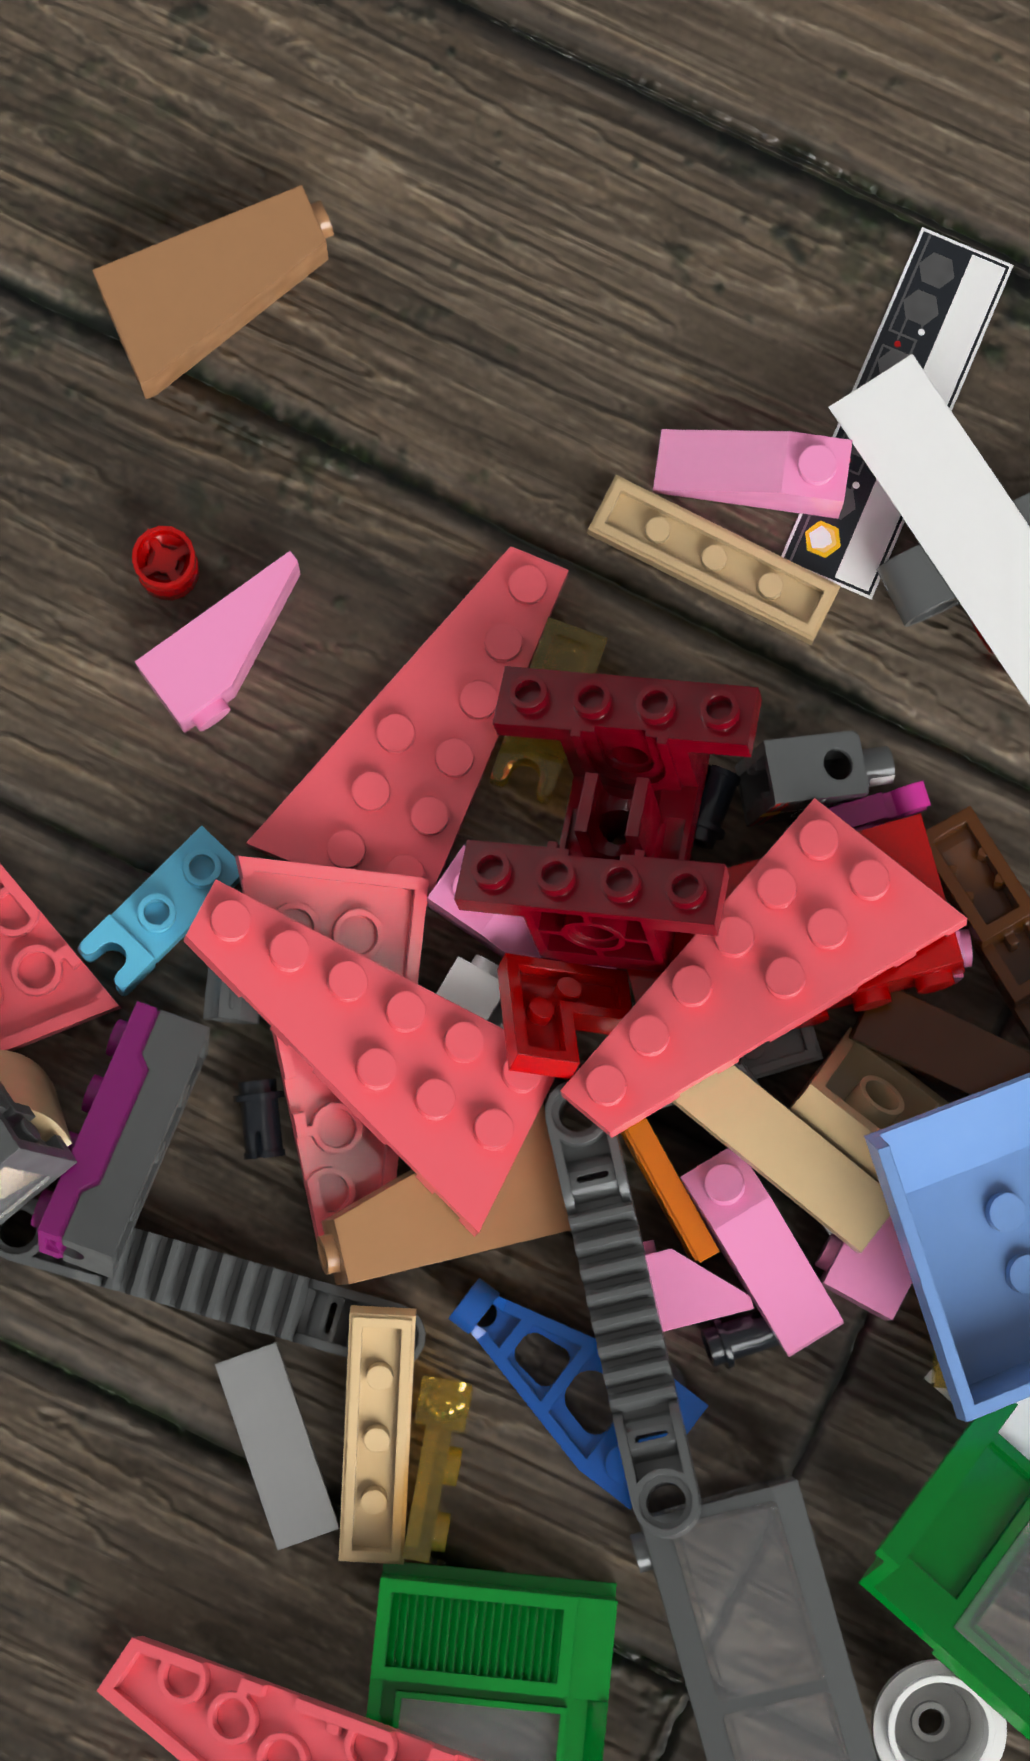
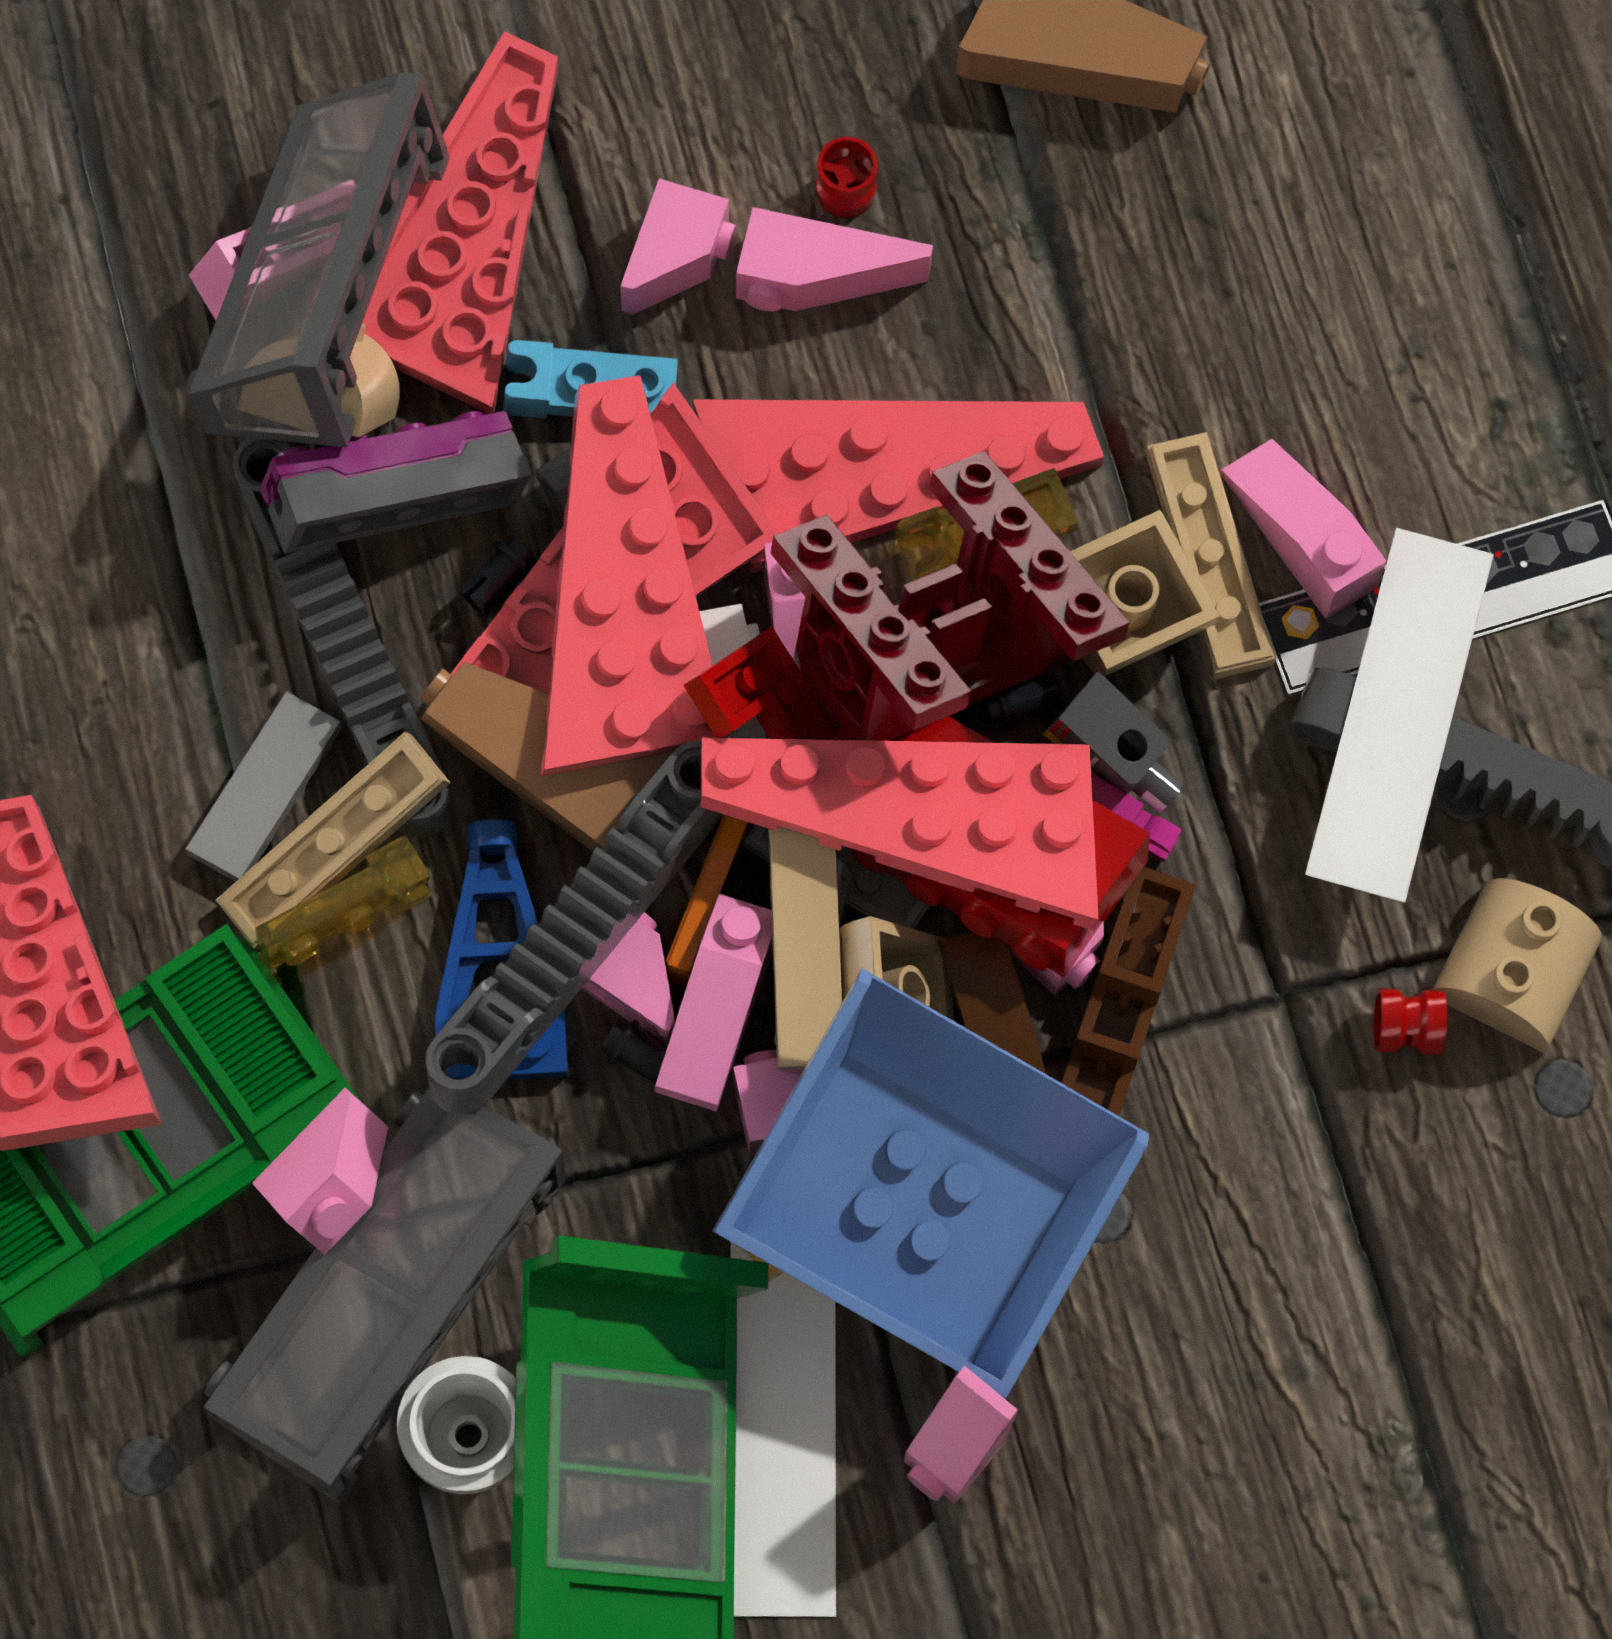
camera: 50 degrees right, 10 degrees down
(106, 742) = (676, 245): none -> bright pink slope
(650, 1668) = (327, 1172): none -> bright pink slope
(714, 636) = (1151, 585): none -> tan brick

